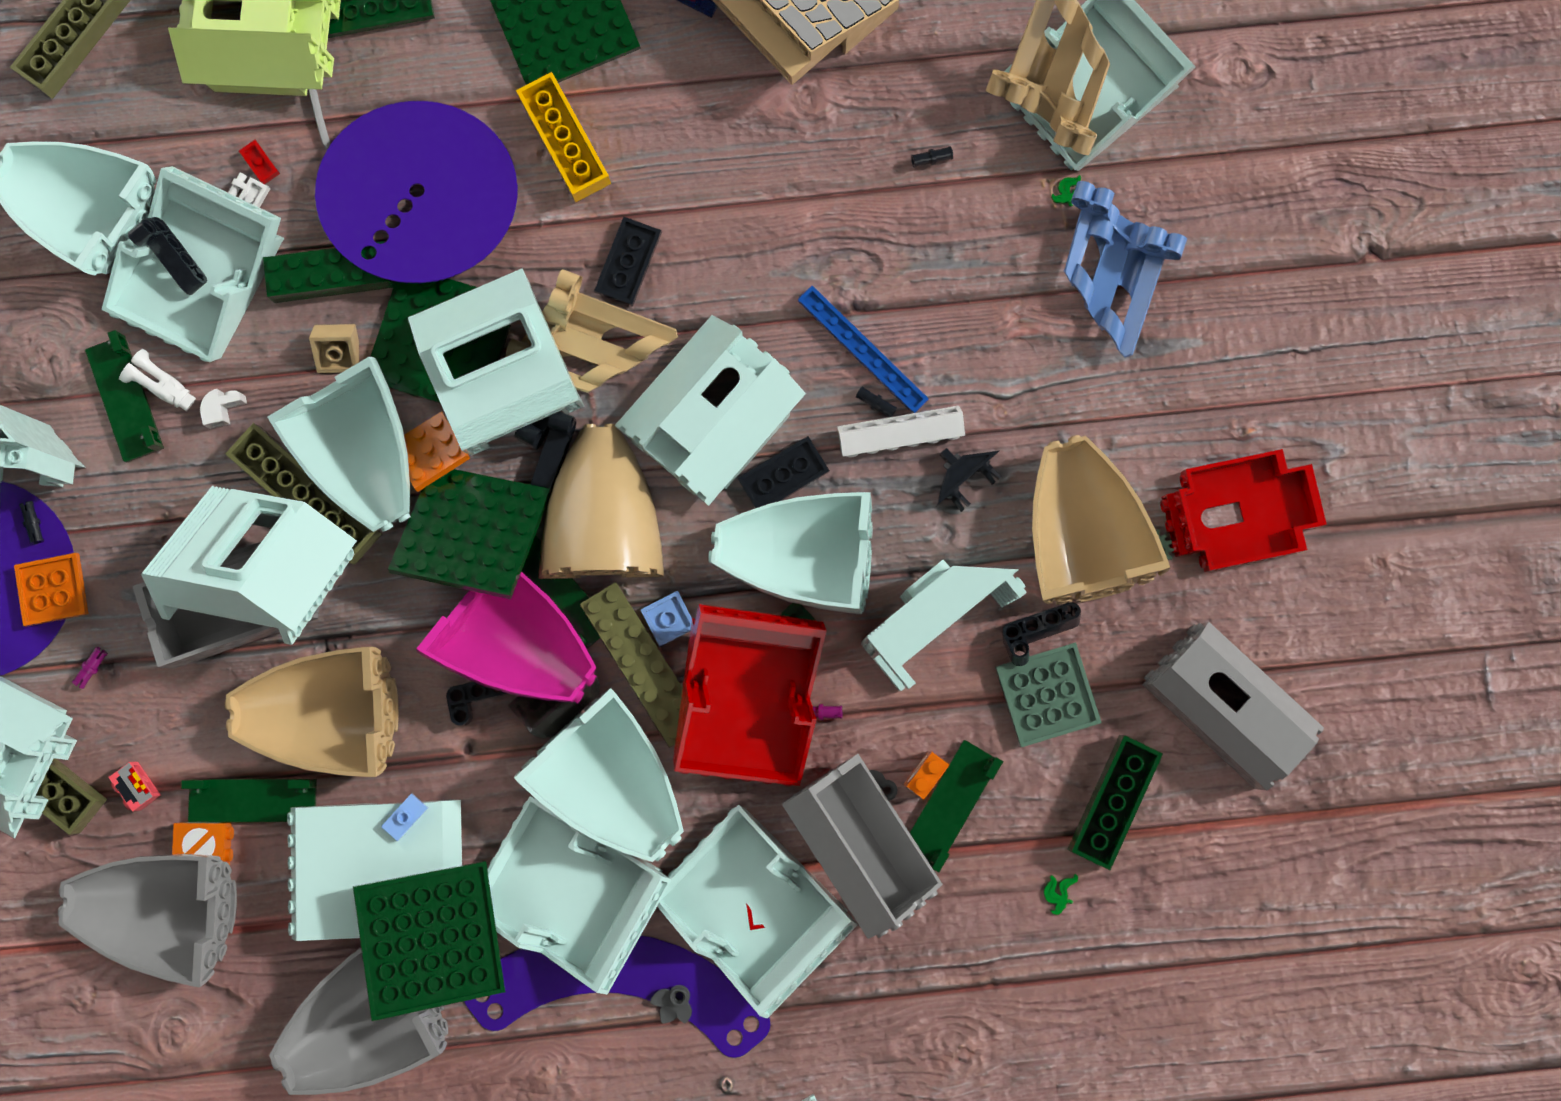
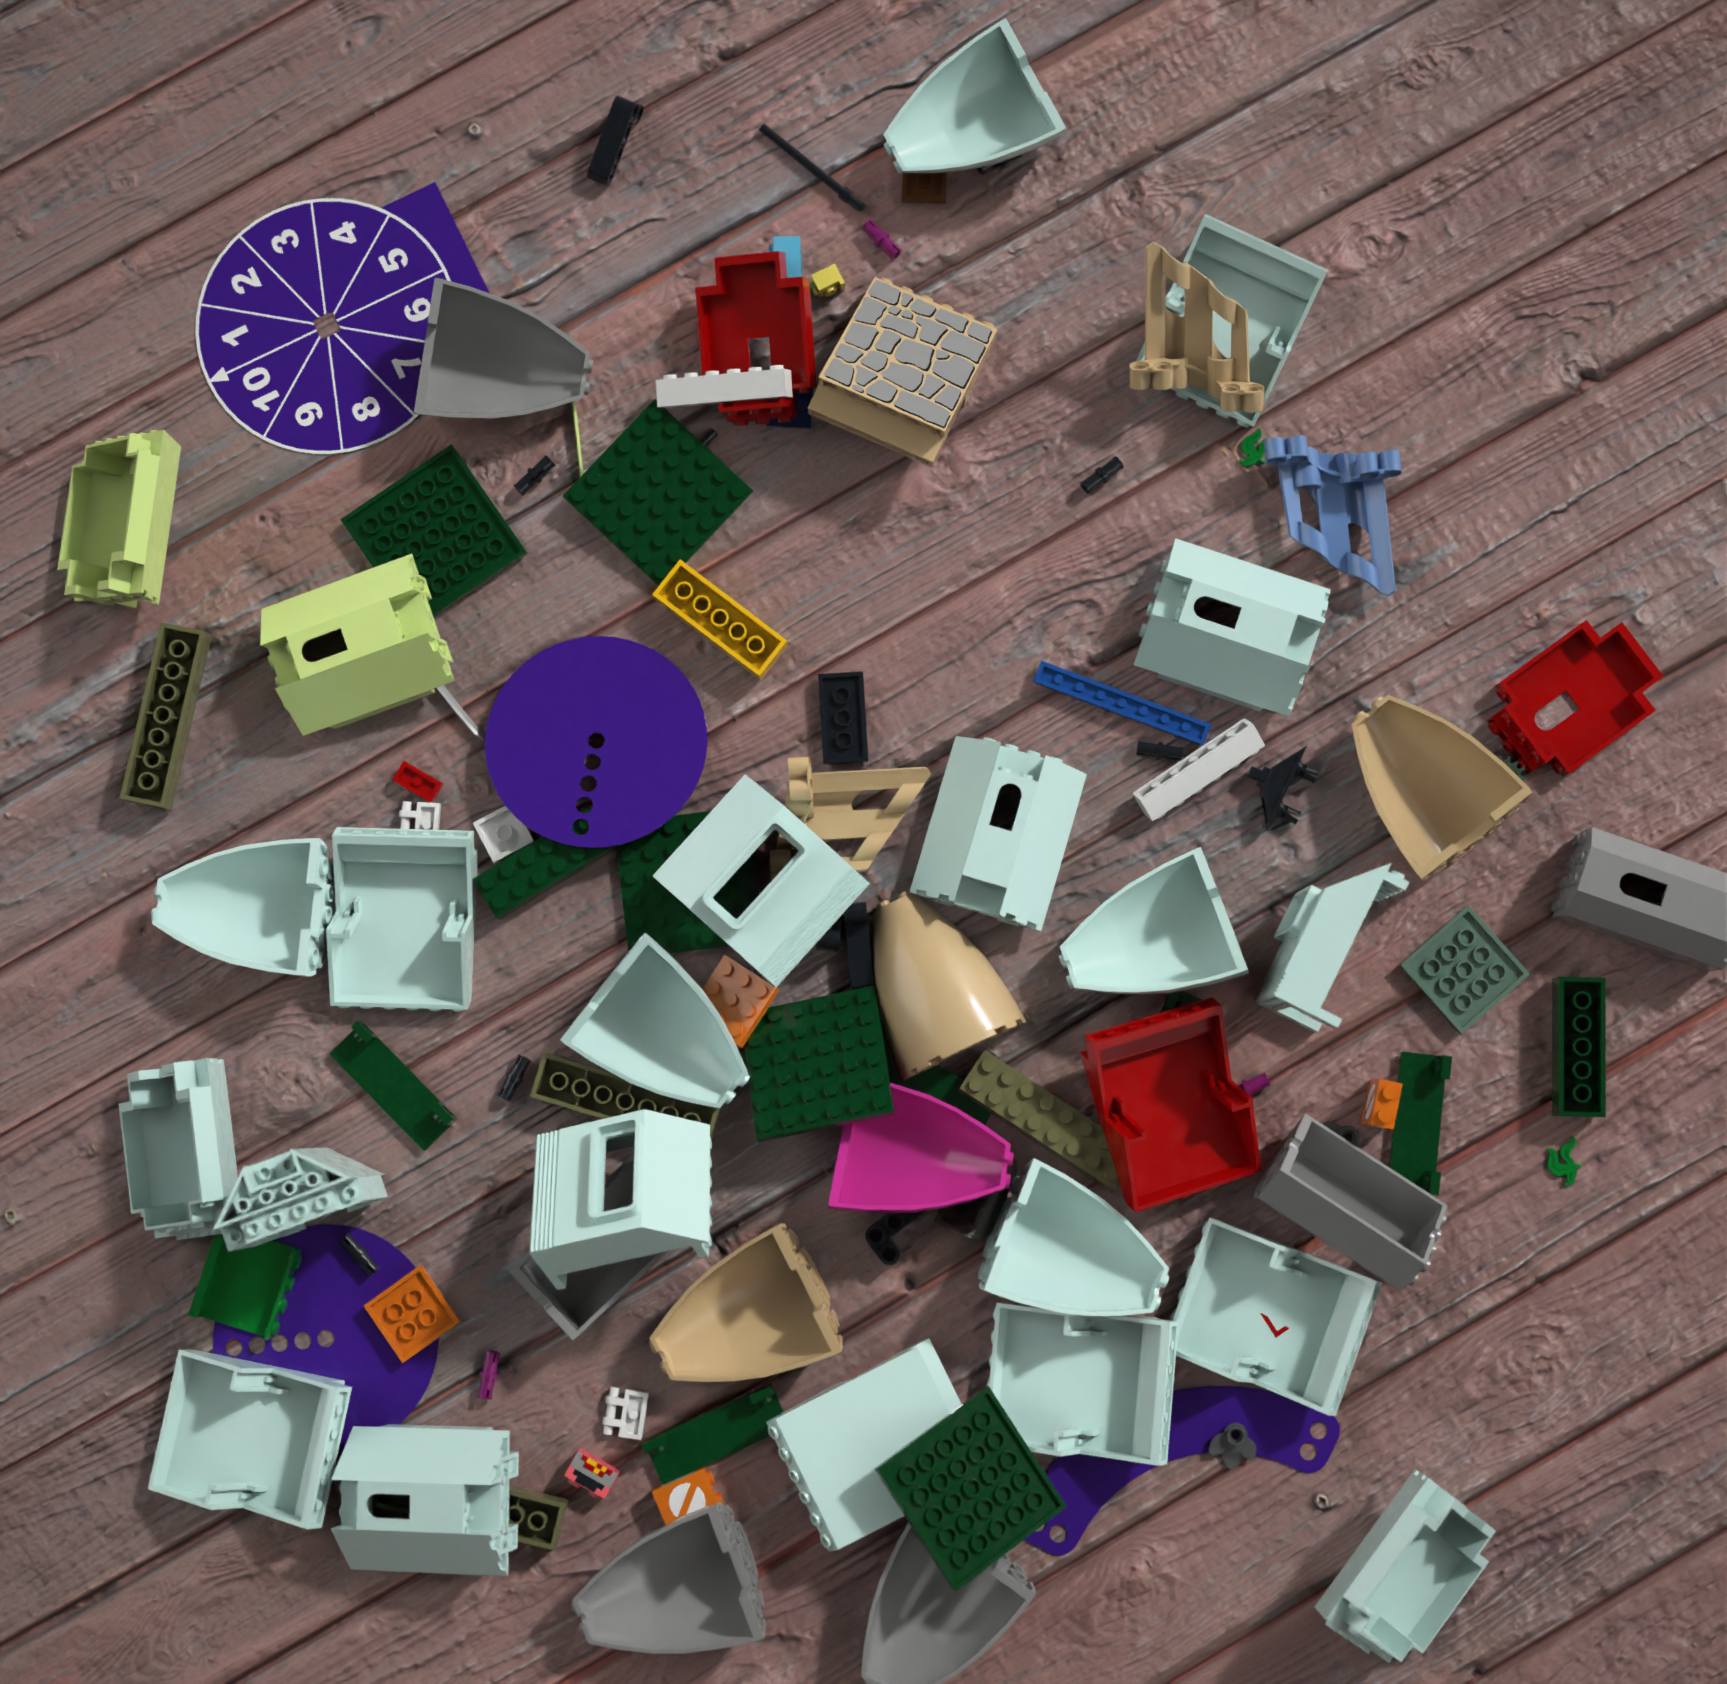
camera: 20 degrees left, 0 degrees up
(166, 389) = (435, 1056): white piece -> none
(170, 252) = (377, 917): black beam -> none
(190, 754) = (632, 1416): none -> white plate
(215, 405) = (491, 1052): white brick -> none
(224, 435) = (514, 1077): none -> black pin
(306, 233) = (502, 834): none -> white plate
(334, 347) = (587, 938): tan slope -> none
(404, 817) = (888, 1378): light blue plate -> none
(668, 618) = (1051, 1063): light blue plate -> none
(784, 474) = (1100, 865): black plate -> none
(988, 359) = (1250, 665): none -> light aqua panel
(1066, 618) = (1431, 907): black beam -> none

